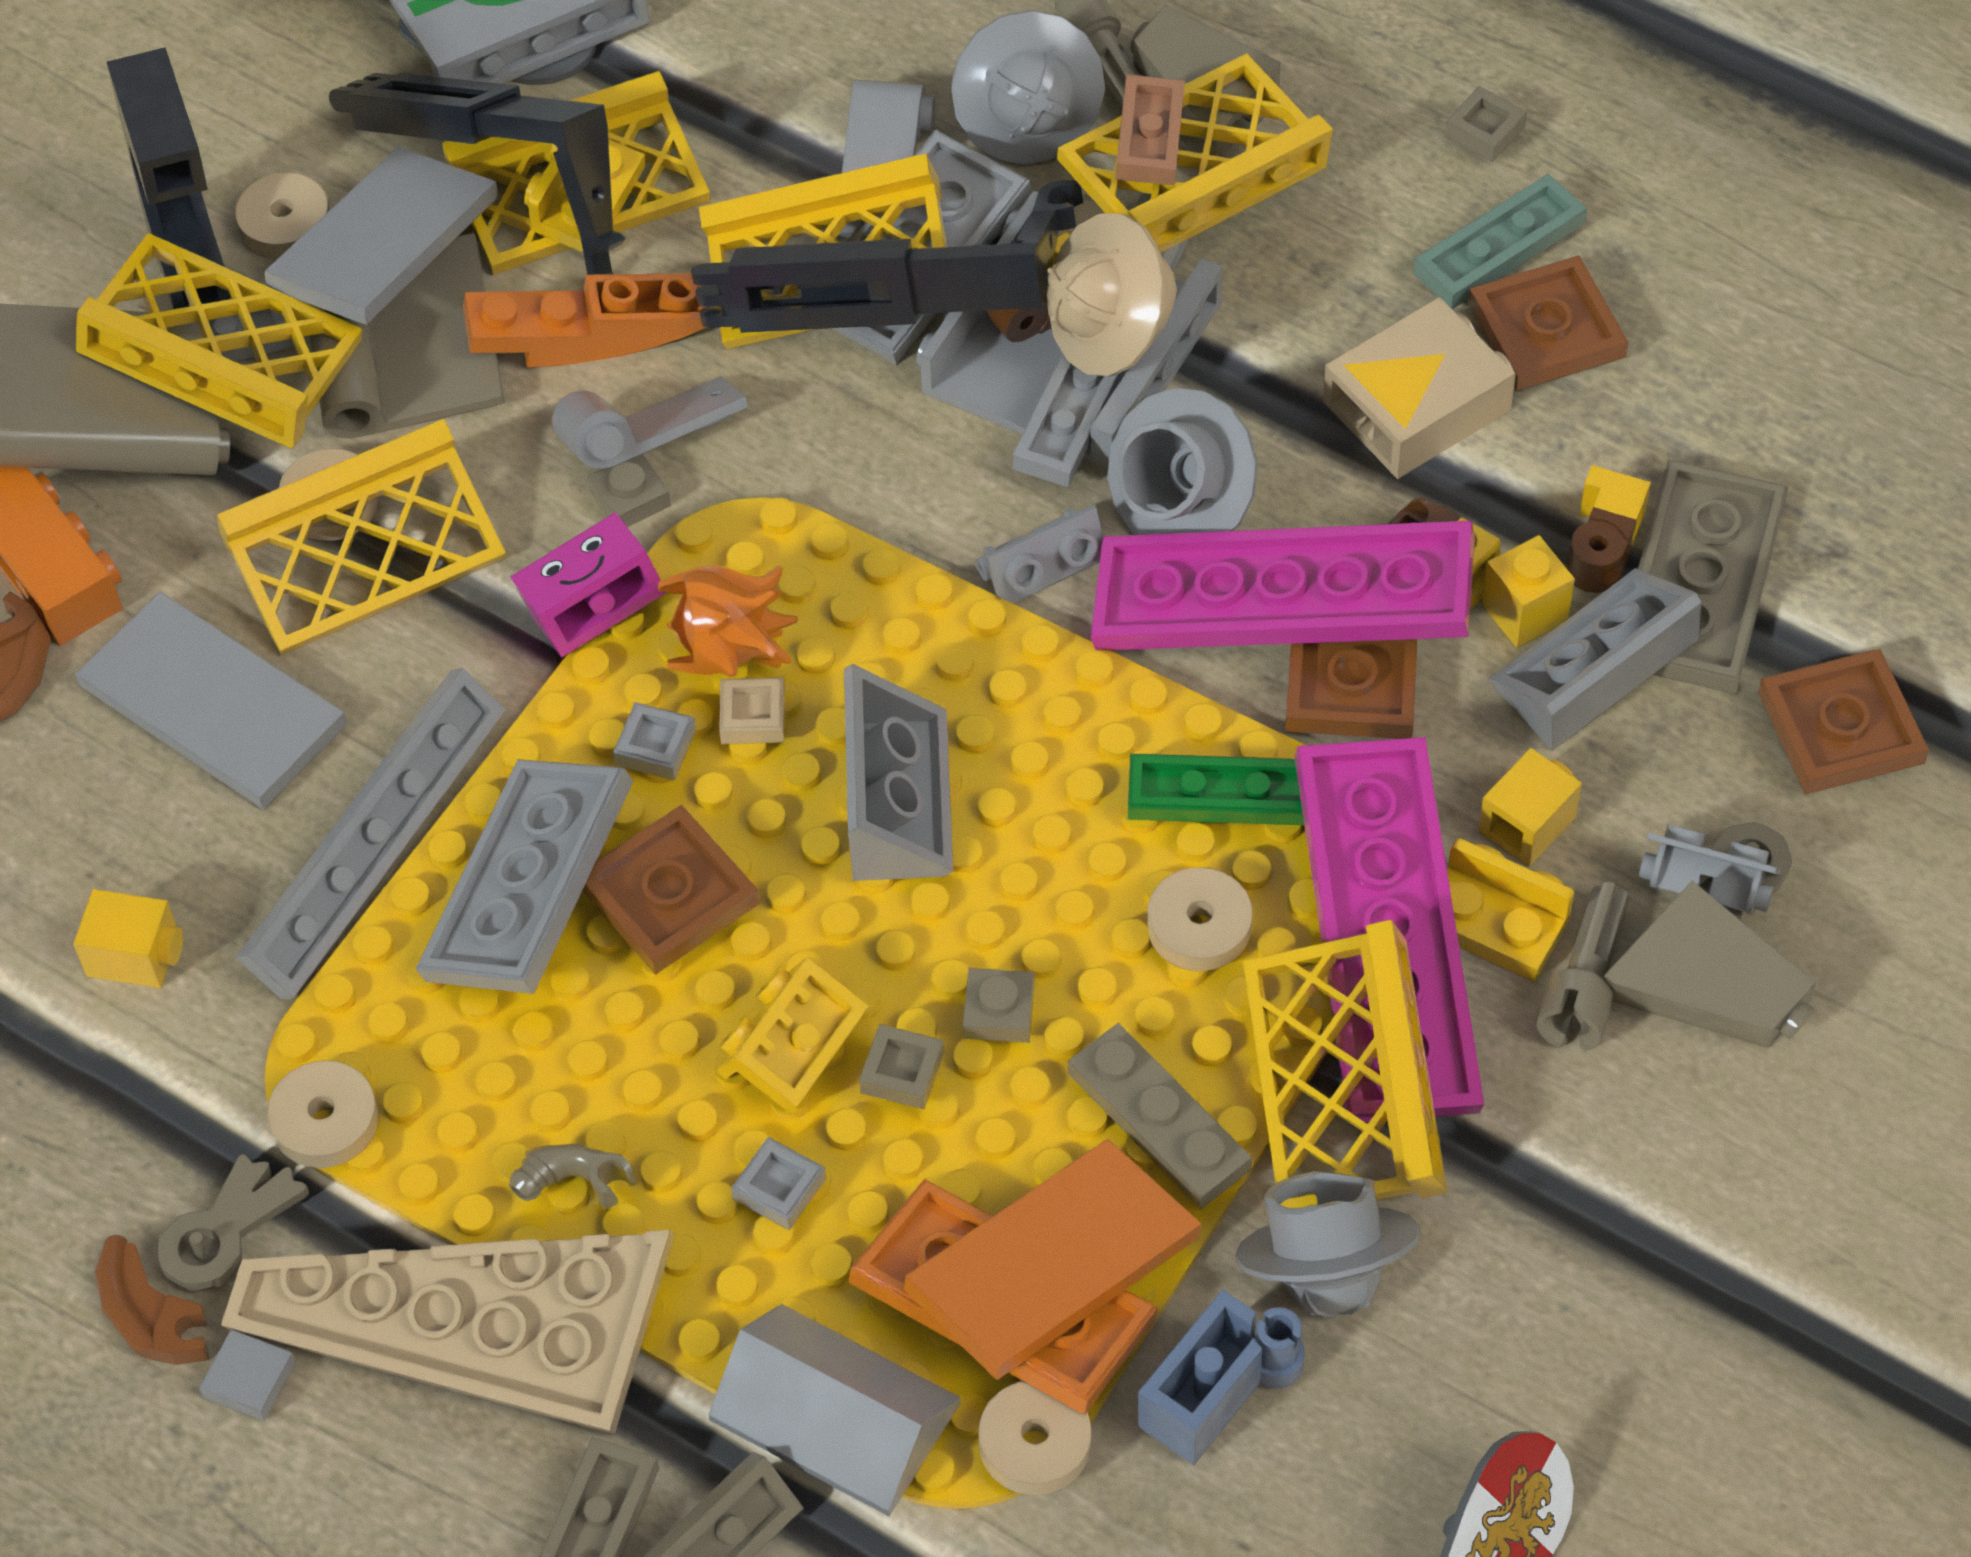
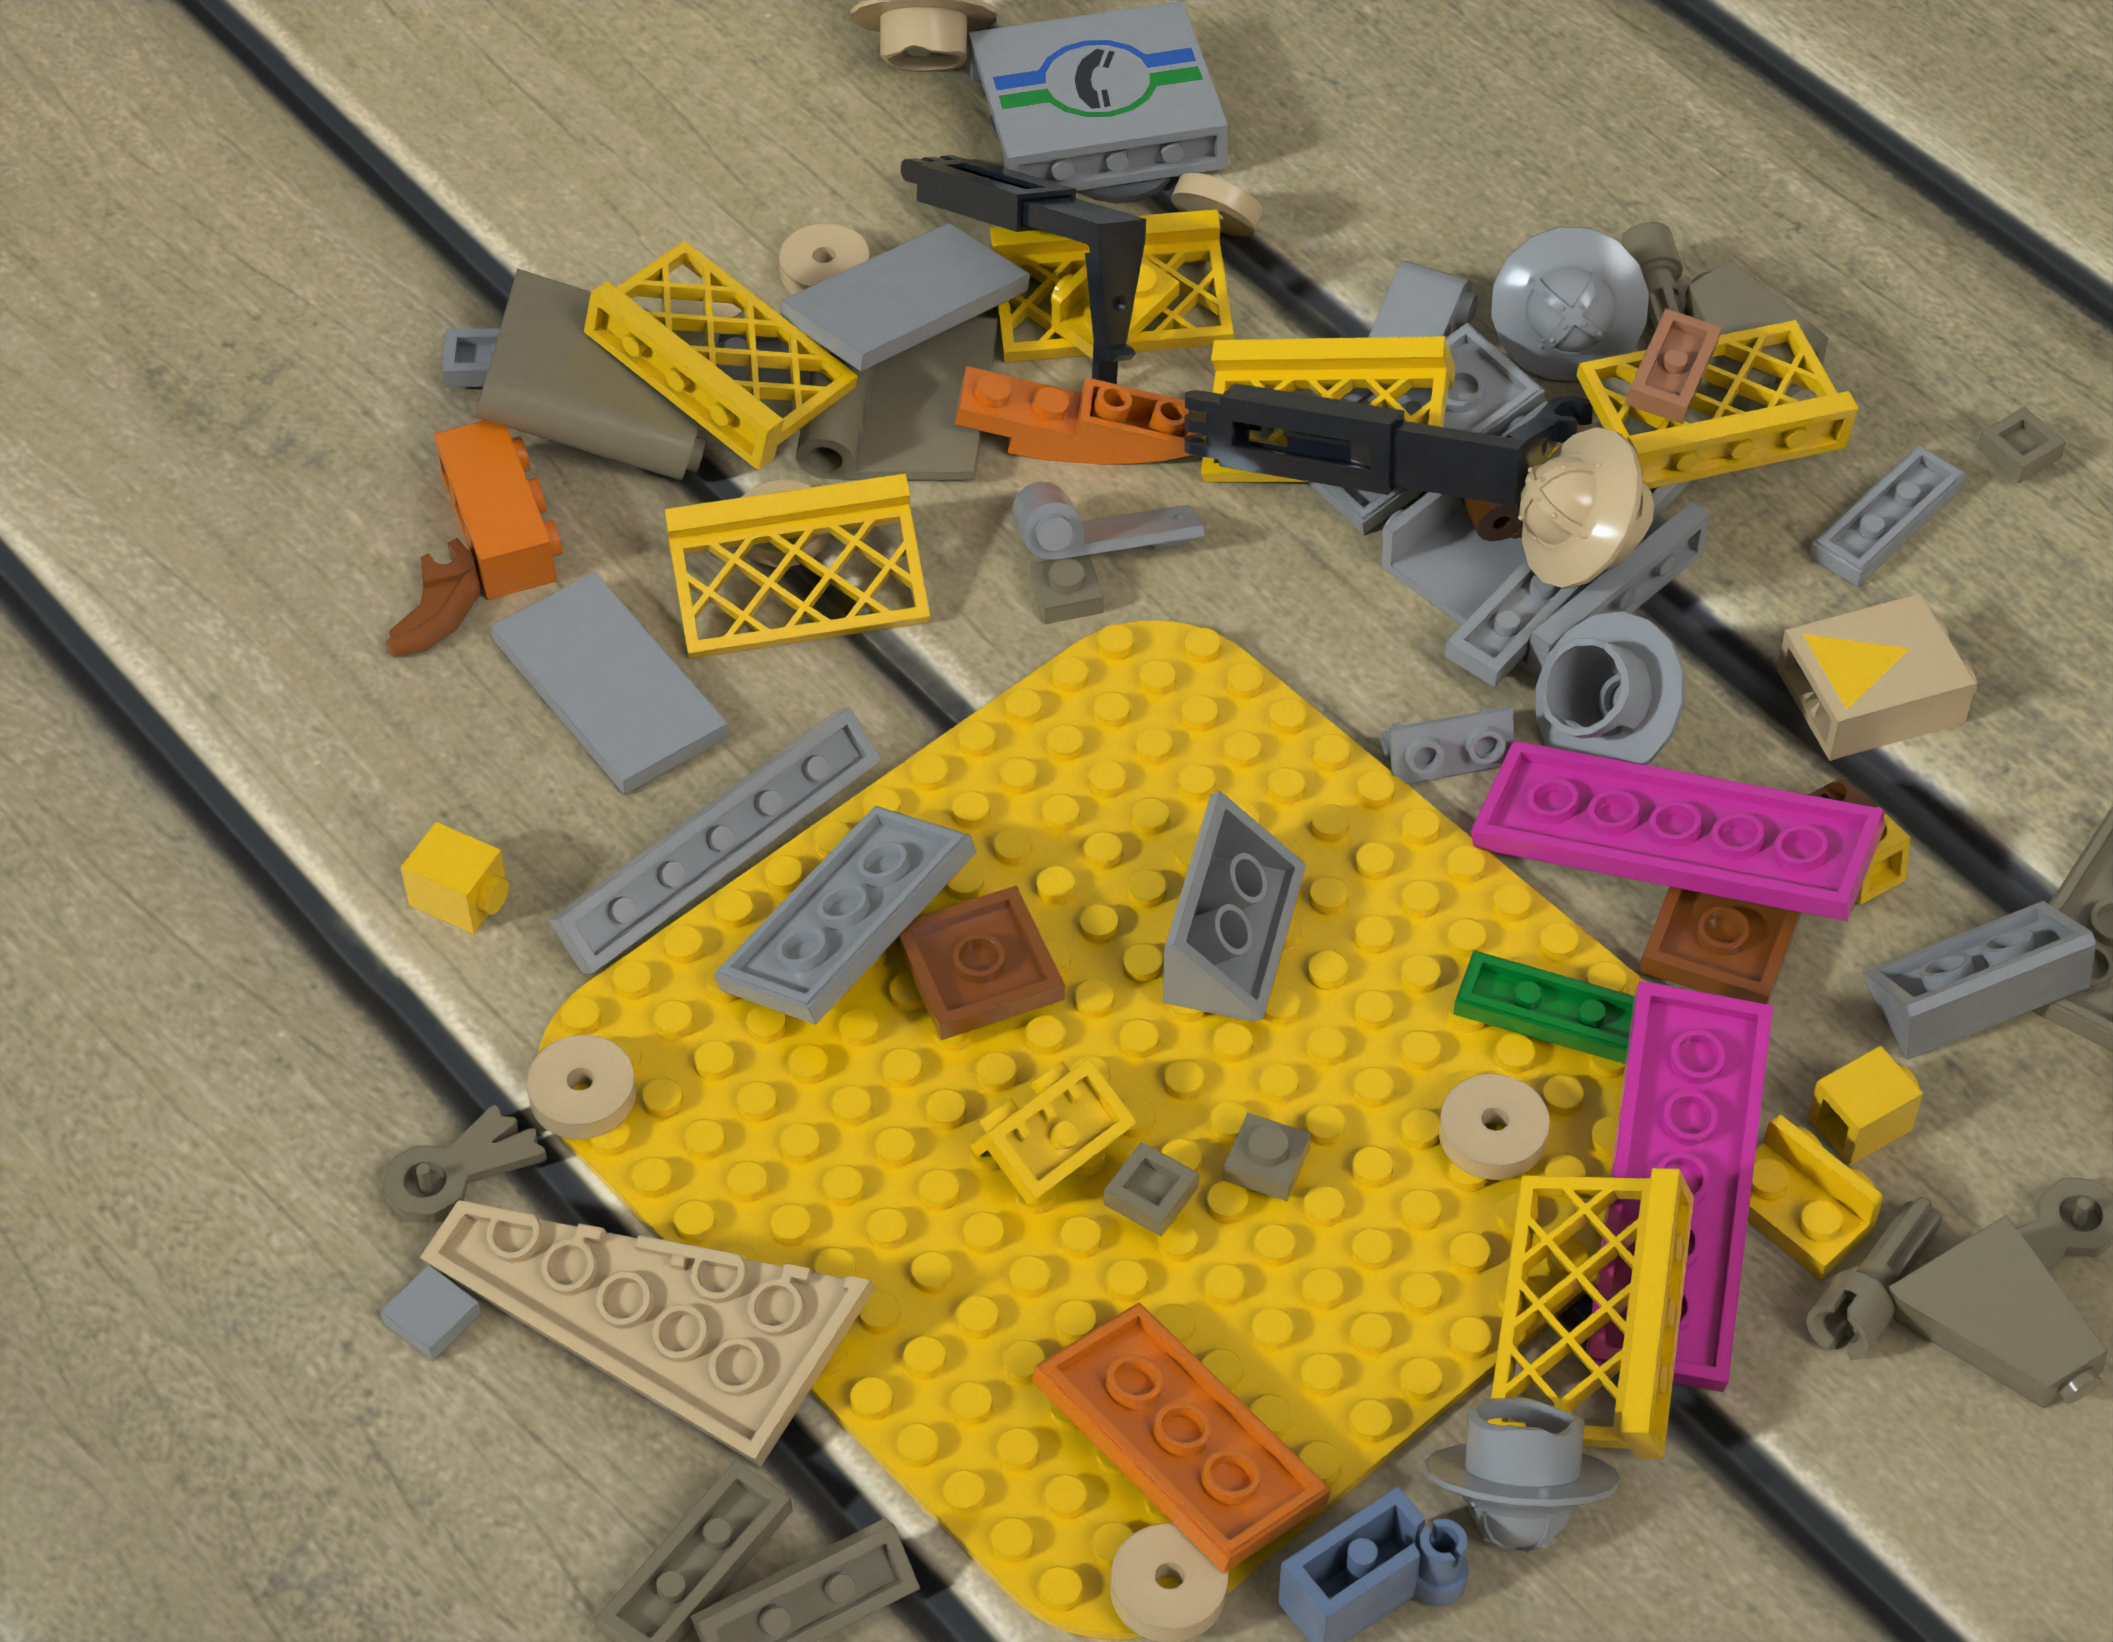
camera: 15 degrees right, 5 degrees down
(142, 1314) = (353, 1230): dark orange piece -> none
(165, 161) = (719, 175): black arch -> none
(555, 1162) = (788, 1190): dark tan piece -> none
(588, 584) = (996, 661): dark pink brick -> none
(638, 58) = (1237, 209): none -> tan piece
(654, 741) = (1012, 822): light grey tile -> none
(726, 620) = (1116, 724): orange hair -> none
(752, 710) = (1116, 817): tan tile -> none
(778, 1183) = (995, 1269): light grey tile -> none
(830, 1406) = (976, 1496): light grey slope -> none
(1051, 1258) = (1239, 1411): orange tile -> none
(1159, 1115) = (1394, 1305): dark tan plate -> none
(1382, 224) = (1887, 515): none -> light grey tile
(1500, 240) = (2001, 558): sand green plate -> none
(1527, 591) = (1926, 896): yellow brick -> none
(1548, 322) = (2028, 646): dark orange plate -> none
(1615, 514) = (2038, 849): leg -> none
(1736, 874) = (2057, 1225): light grey hinge -> none

